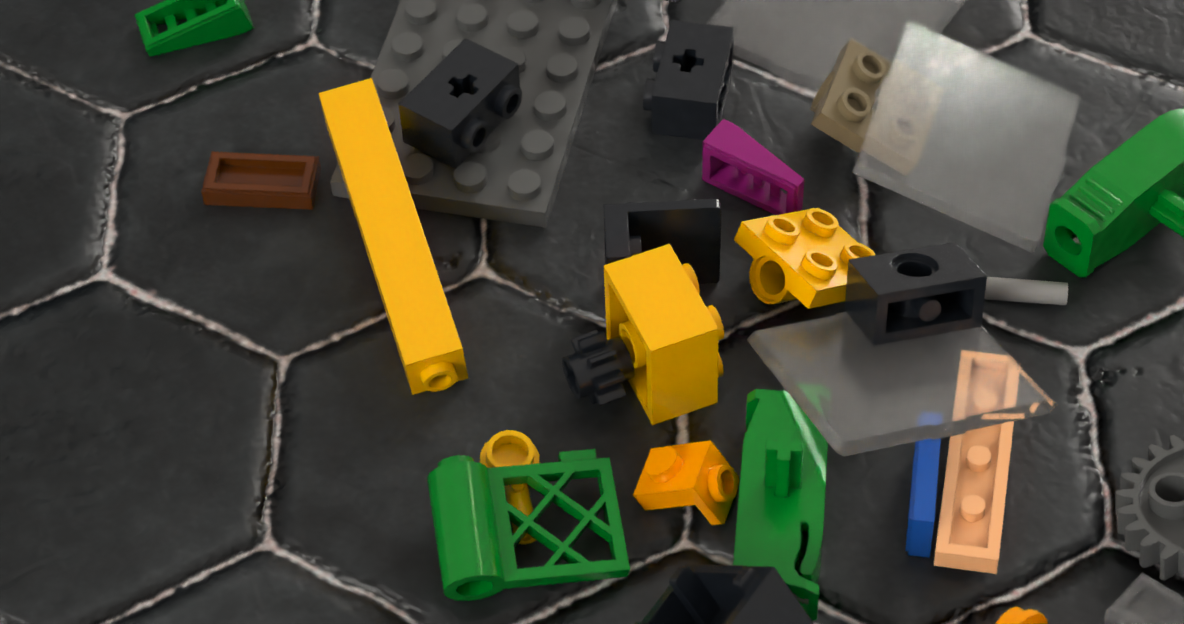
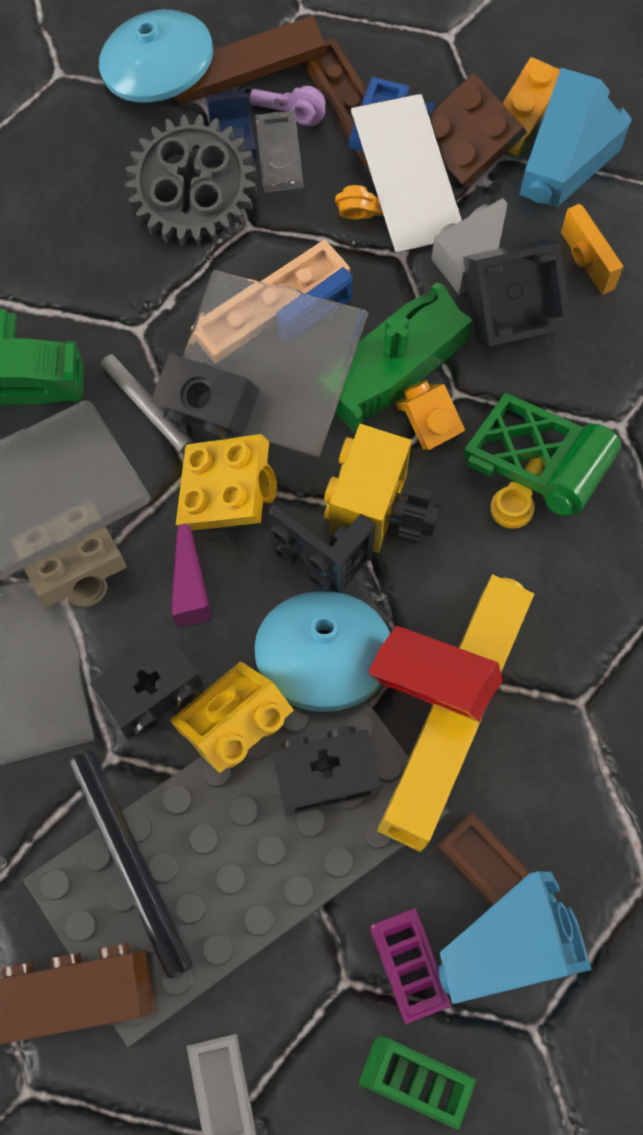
camera: 140 degrees left, 20 degrees up
(171, 122) = (515, 944): none -> dark azure slope
(292, 86) = (393, 925): none -> magenta slope
(430, 203) = (437, 673): none -> red piece
(542, 223) = (318, 668): none -> medium azure dish
(589, 91) = (232, 716): none -> yellow plate

